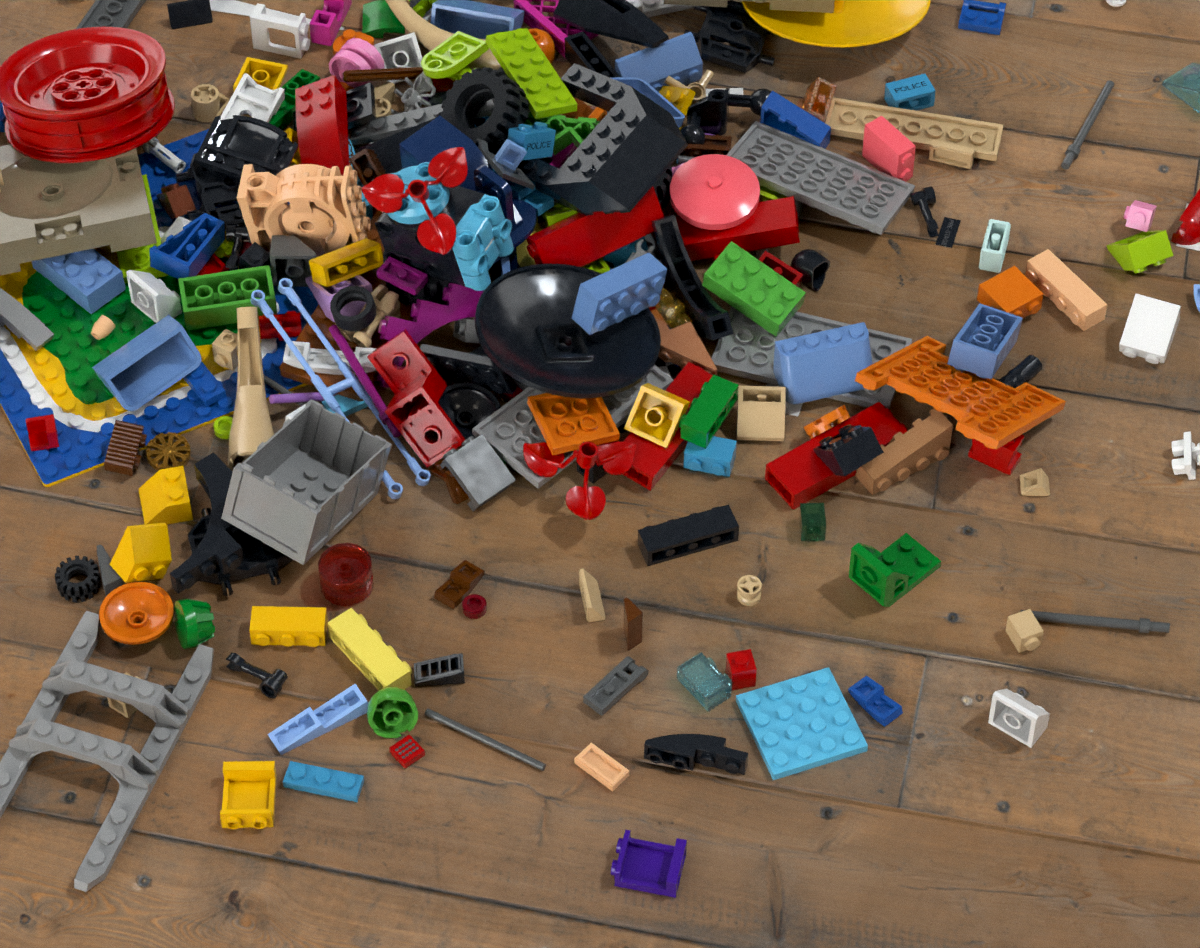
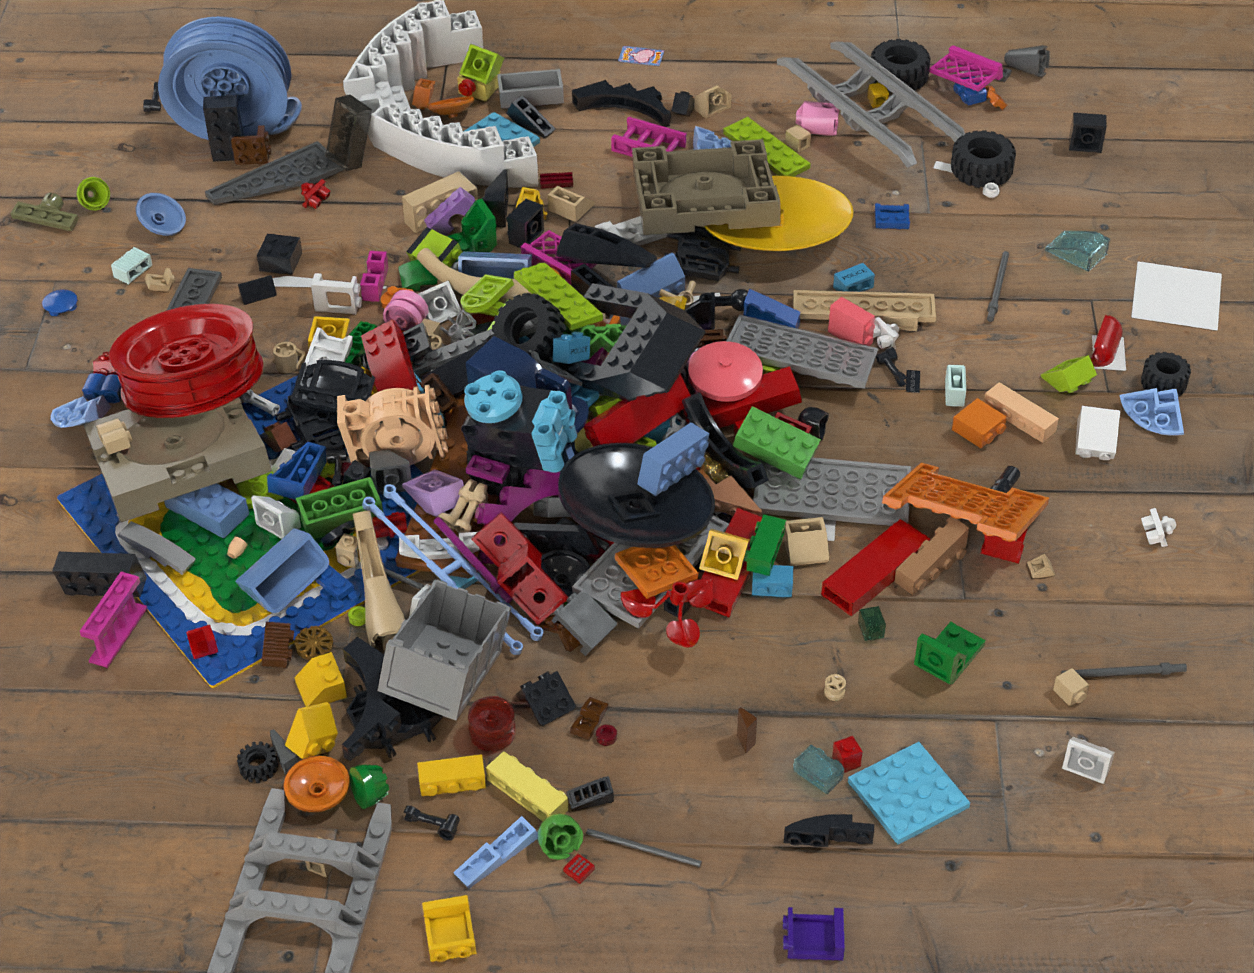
camera: 10 degrees left, 5 degrees down
(208, 333) = (337, 533): none -> black tile
(295, 397) = (415, 582): medium lavender bar -> none
(323, 781) = (512, 906): dark azure plate -> none
(346, 262) = (435, 466): yellow brick -> none
(356, 322) = (449, 489): black tyre -> none
(381, 74) = (429, 316): reddish brown axle -> none
(387, 191) = (471, 398): red plant -> none
(416, 553) = (547, 697): none -> black bracket
(510, 154) = (559, 359): light blue tile -> none
(591, 597) = (703, 712): tan slope -> none
(601, 766) = (750, 856): light nougat tile -> none
(615, 685) = (743, 784): dark grey plate -> none
(688, 535) = (772, 649): black brick -> none
(819, 98) = (784, 290): clear orange slope -> none
(822, 363) = (848, 494): medium blue windscreen -> none
(827, 421) = (862, 540): orange plate -> none
(848, 449) = (889, 559): black slope -> none
(873, 700) = (961, 762): blue slope -> none
(931, 168) = (886, 333): none -> white hips
(984, 341) = (972, 459): medium blue brick -> none
(1140, 215) = (1061, 348): bright pink brick -> none

